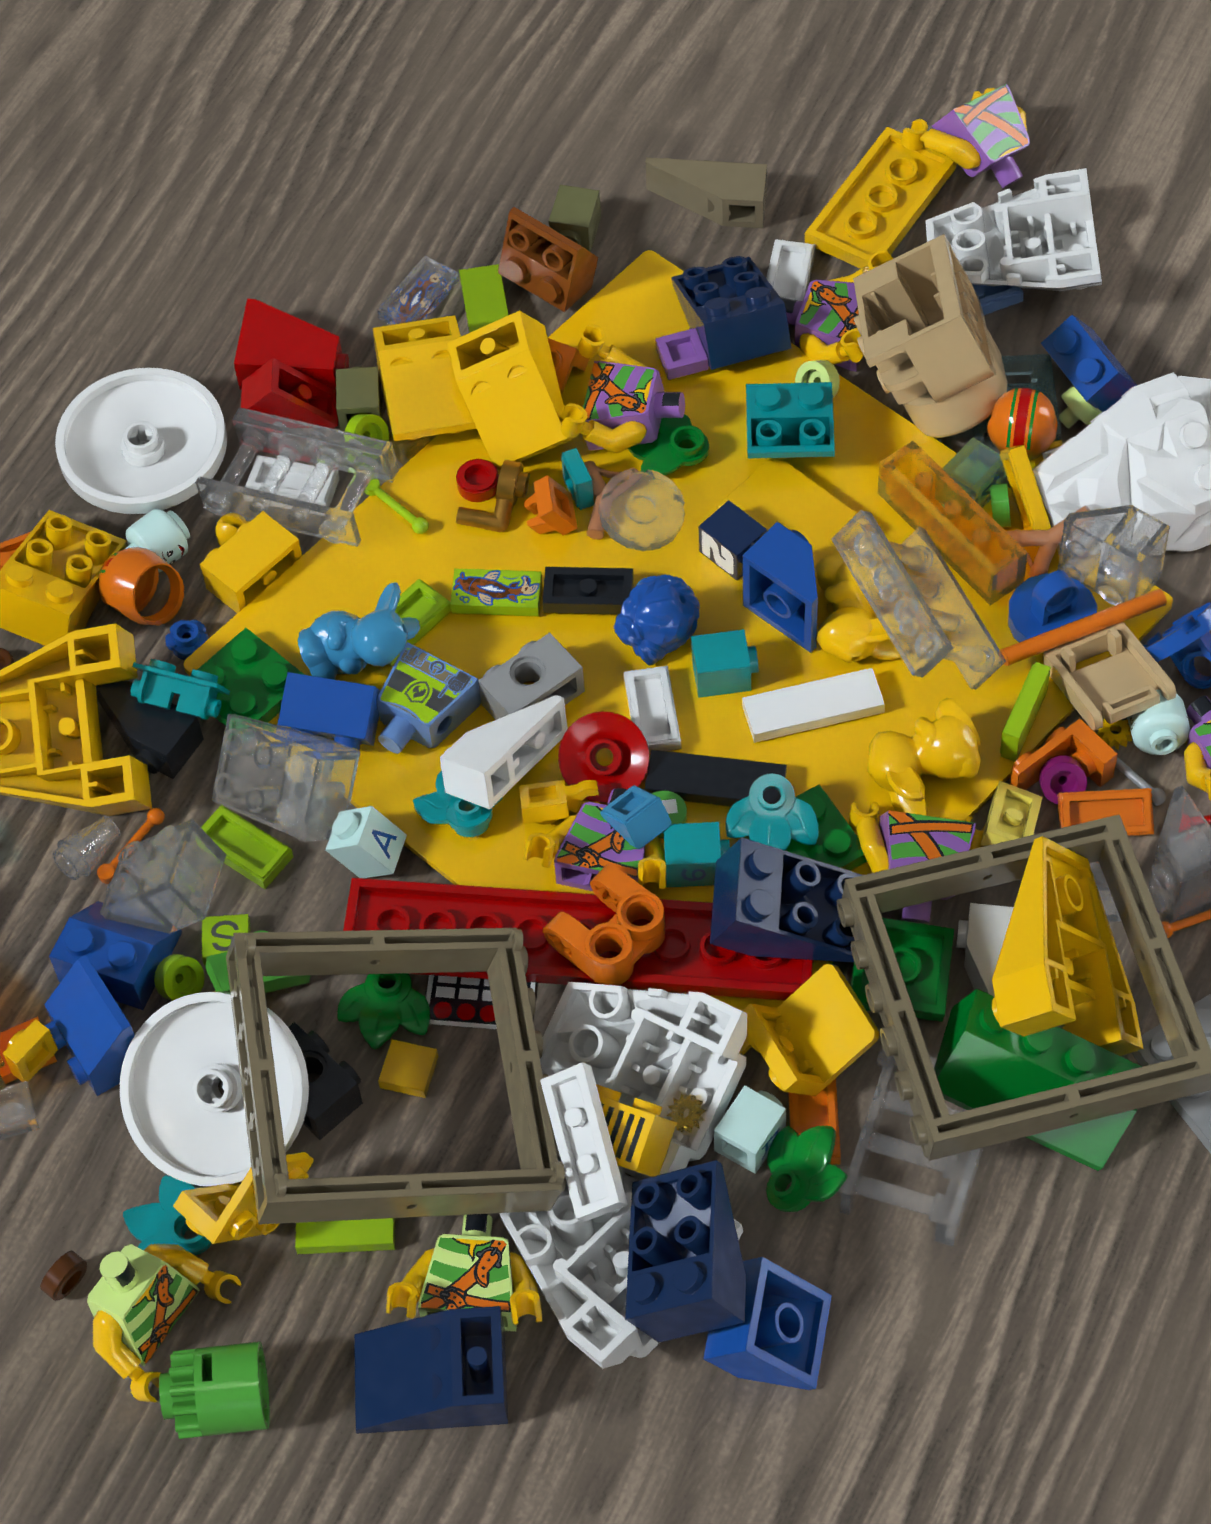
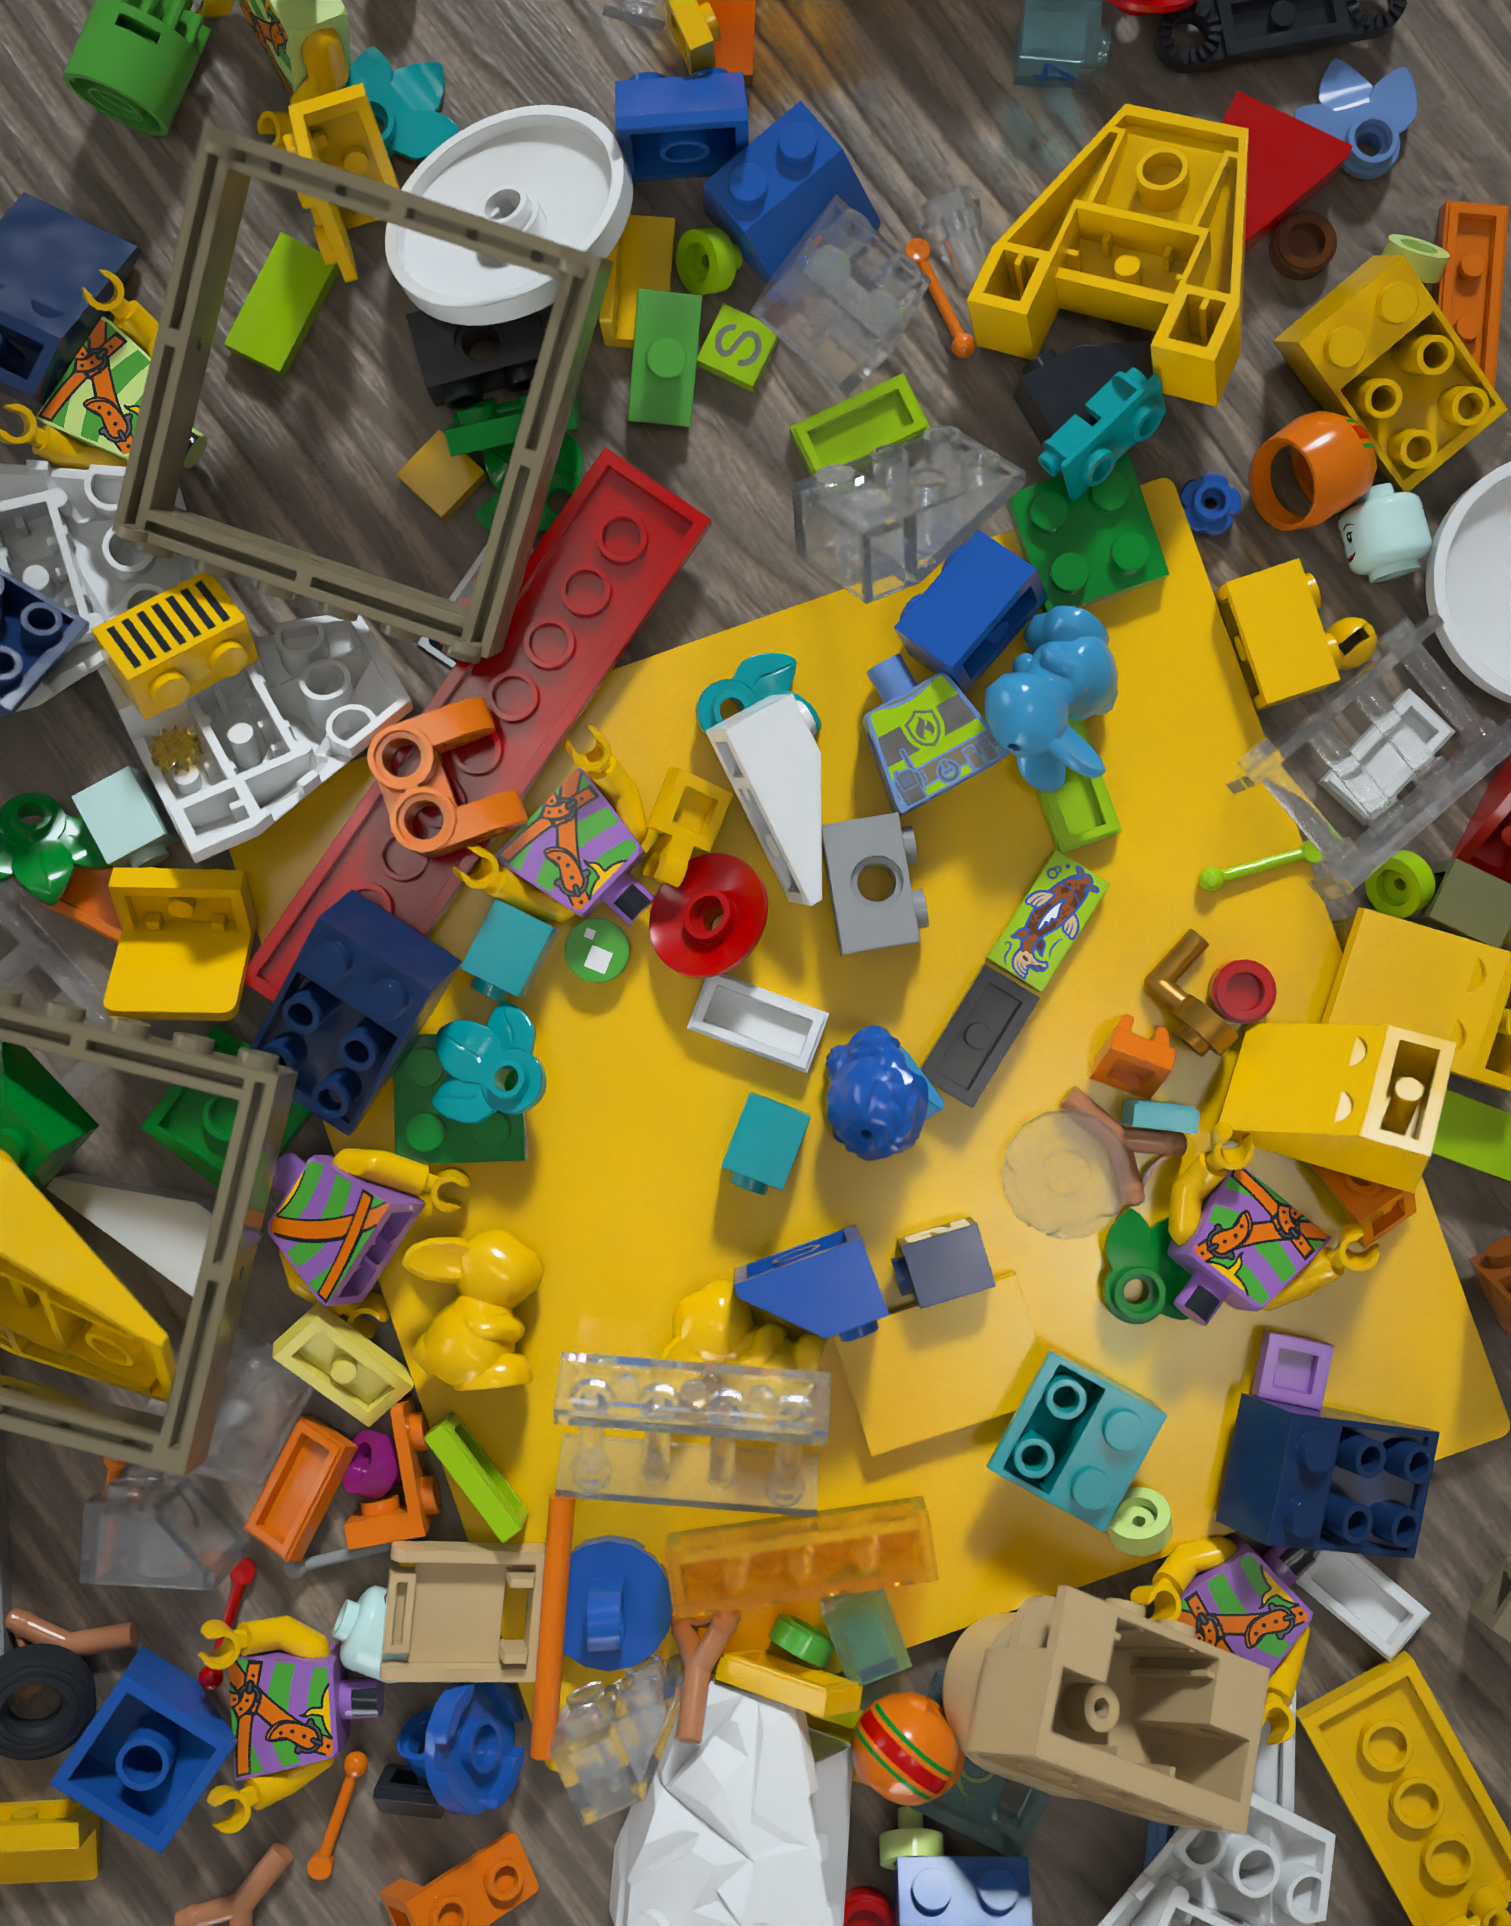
camera: 110 degrees right, 30 degrees up
(350, 1024) = (493, 424): none -> green plate
(366, 842) = (759, 566): light aqua brick -> none
(583, 1142) = (157, 586): white plate -> none
(637, 816) = (578, 897): dark azure slope -> none
(708, 777) = (610, 1039): black tile -> none
(813, 705) = (648, 1223): white tile -> none

